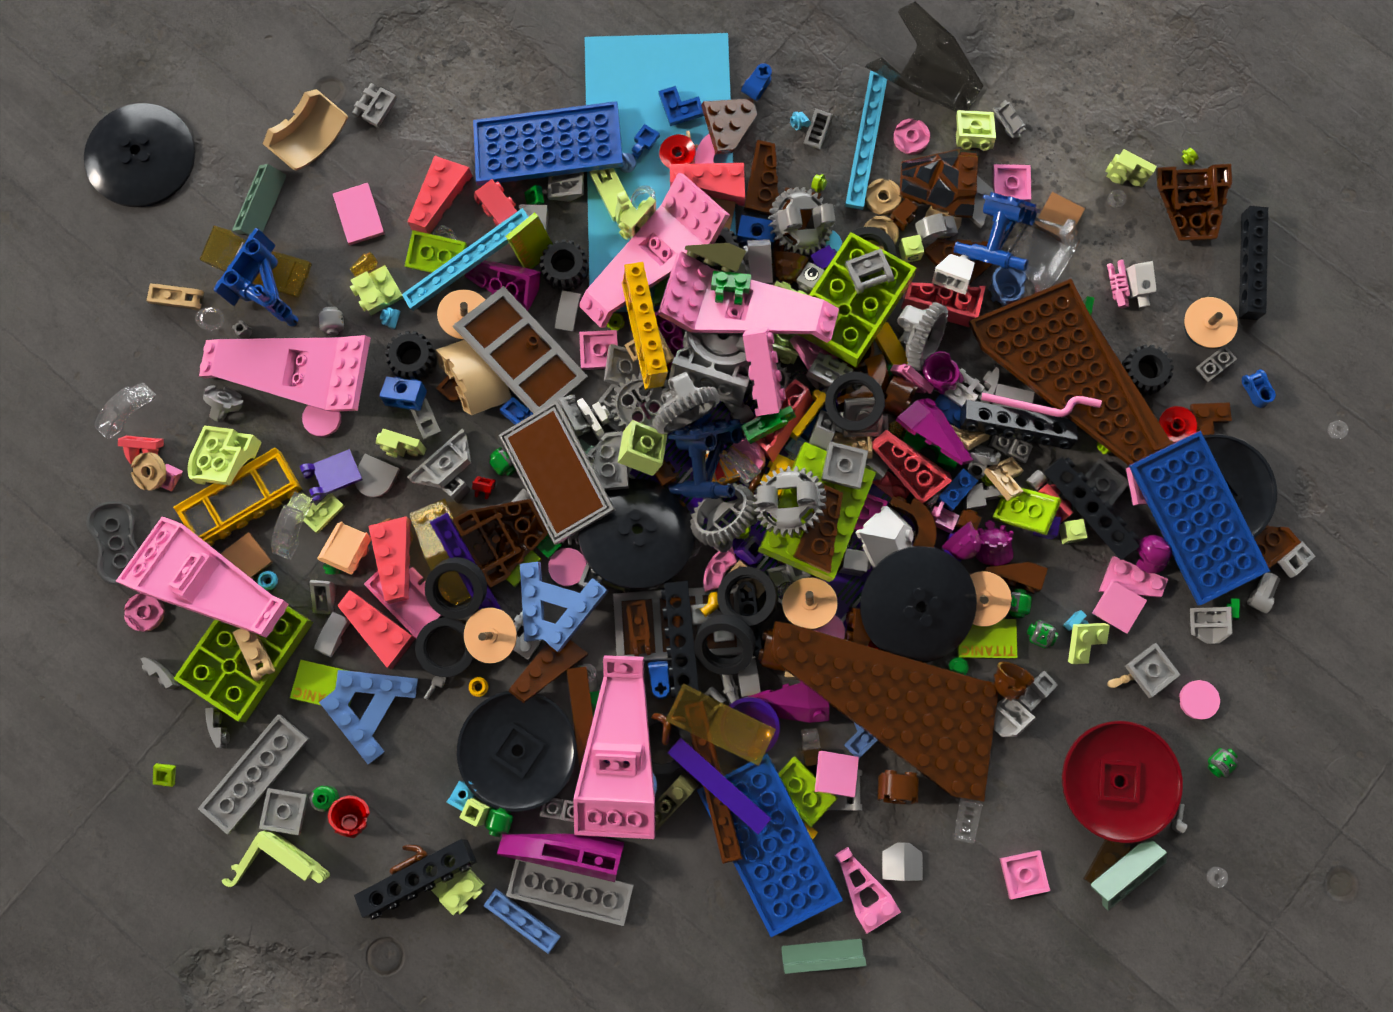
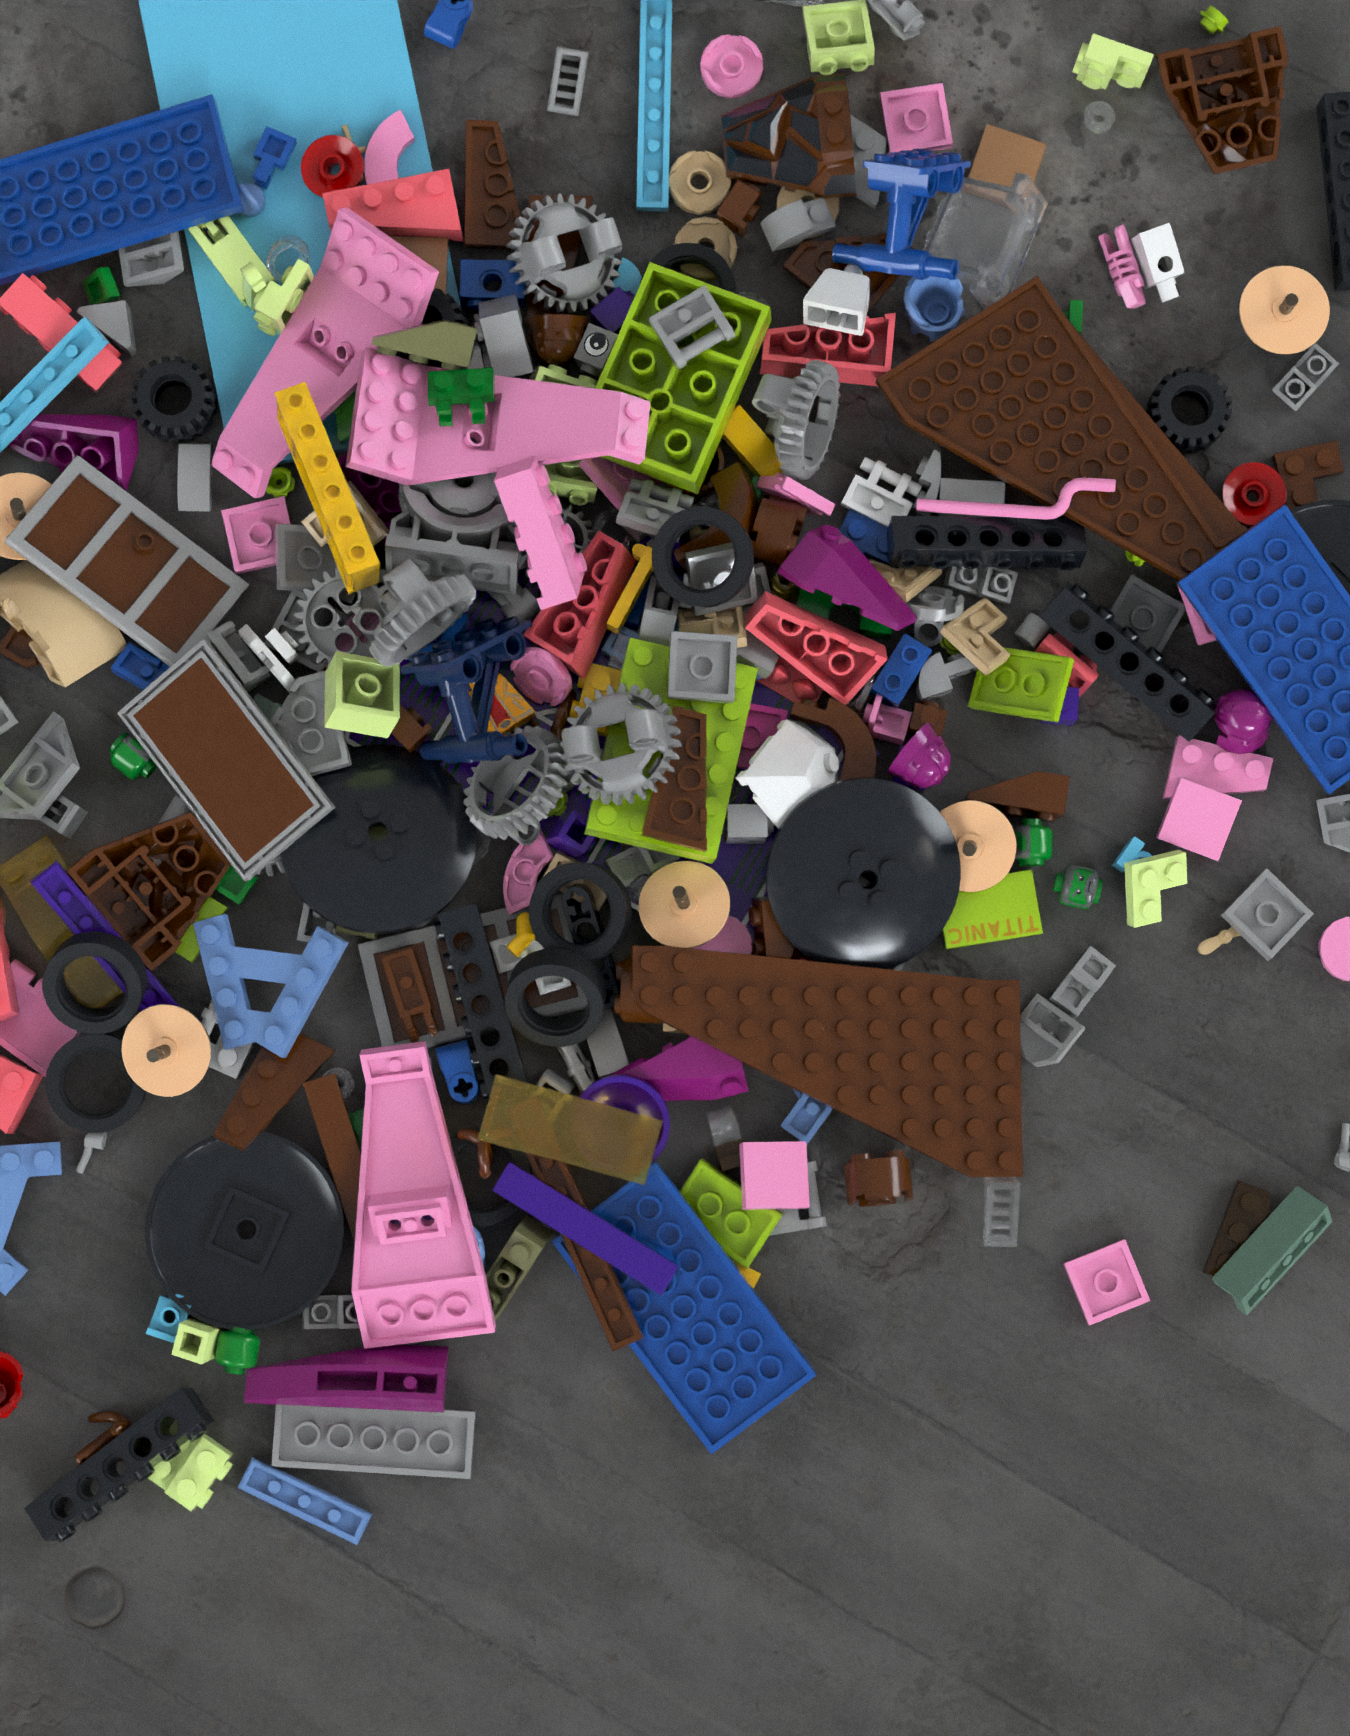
camera: 10 degrees left, 5 degrees up
(472, 686) = (155, 1130): yellow plate -> none
(483, 484) = (107, 801): red tile -> none
(529, 241) = (107, 371): lime tile -> none
(566, 566) = (272, 913): bright pink tile -> none
(678, 111) = (321, 92): blue plate -> none
(728, 122) = (411, 97): plate -> none
(736, 459) = (522, 685): clear slope -> none
(767, 424) = (563, 619): green hinge -> none
(799, 120) = (533, 72): medium azure plate -> none
(819, 183) = (585, 177): lime plate -> none
(823, 956) = (800, 1468): sand green panel -> none
(878, 912) = (879, 1383): bright pink plate -> none
(902, 863) = (905, 1298): light grey slope -> none
(911, 248) = (761, 267): yellowish green brick -> none
(942, 372) = (844, 475): magenta hair -> none
(959, 665) = (948, 963): green plate -> none
(995, 545) = (977, 752): magenta hair -> none
(1012, 680) = (1038, 971): reddish brown helmet -> none
(1072, 531) = (1103, 706): yellowish green brick -> none
(1149, 789) = (1287, 1095): dark red dish -> none

